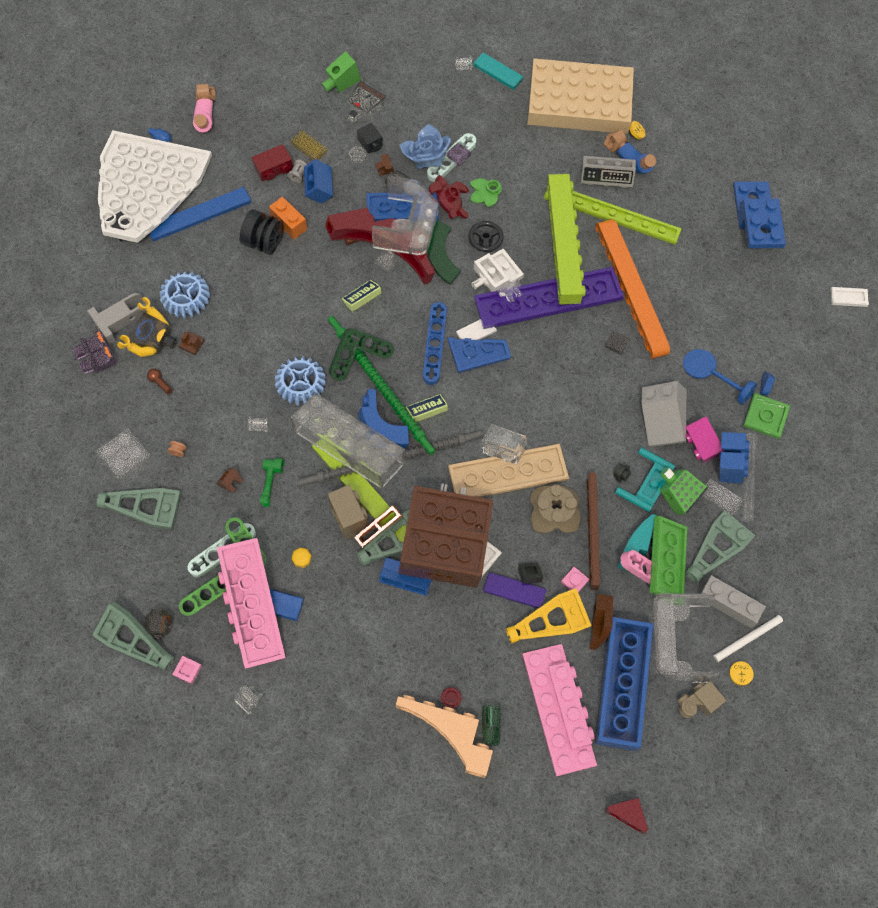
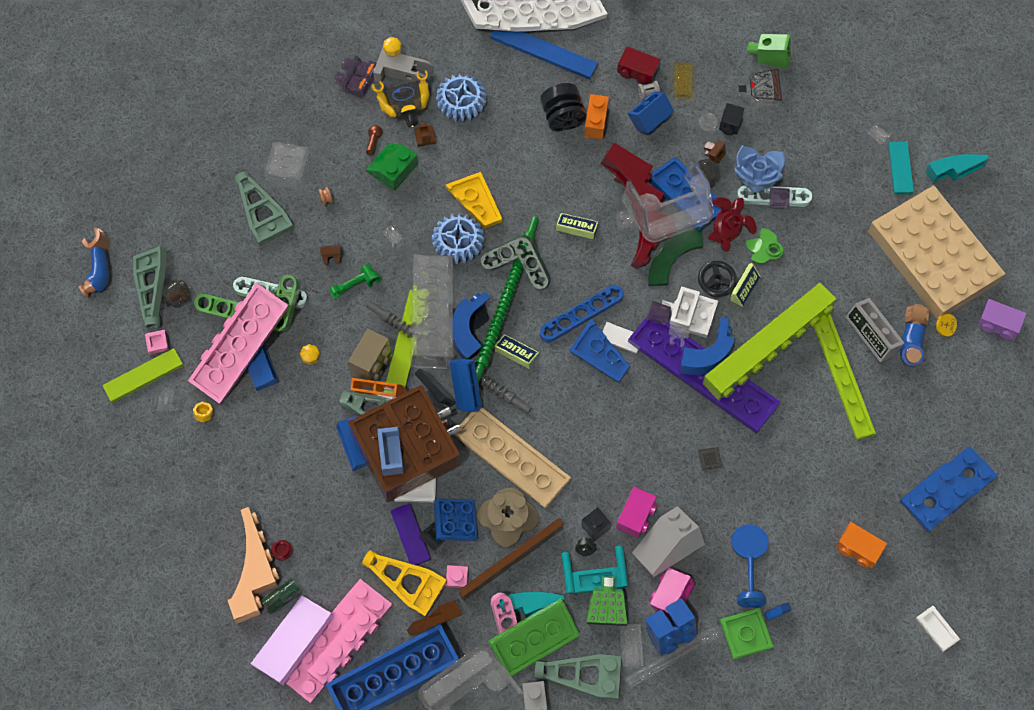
camera: 55 degrees right, 0 degrees up
(84, 674) = (99, 274): none -> piece
(98, 307) = (392, 46): none -> yellow tile
(195, 382) = (393, 165): none -> green slope
(206, 703) = (142, 375): none -> lime tile
(276, 344) = (476, 199): none -> yellow wing
(281, 676) = (203, 412): none -> yellow tile
(410, 483) = (435, 387): none -> black tile
(430, 459) = (465, 385): none -> blue piece
(454, 548) = (390, 451): none -> medium blue panel
(481, 291) = (658, 312): none -> clear purple tile
(503, 222) = (745, 285): none -> slope
(503, 444) = (529, 432): clear brick -> none
(527, 40) = (955, 166): none -> teal slope
(530, 548) = (455, 520): none -> blue tile
(535, 742) = (292, 640): none -> tile
(544, 290) = (703, 361): none -> blue arch
(611, 452) = (596, 524): none -> black brick
(624, 418) = (636, 512): none -> dark pink brick
(634, 290) = (773, 433): orange beam -> none
(660, 97) = (1001, 319): none -> medium lavender brick
(757, 296) = (860, 545): none -> orange brick

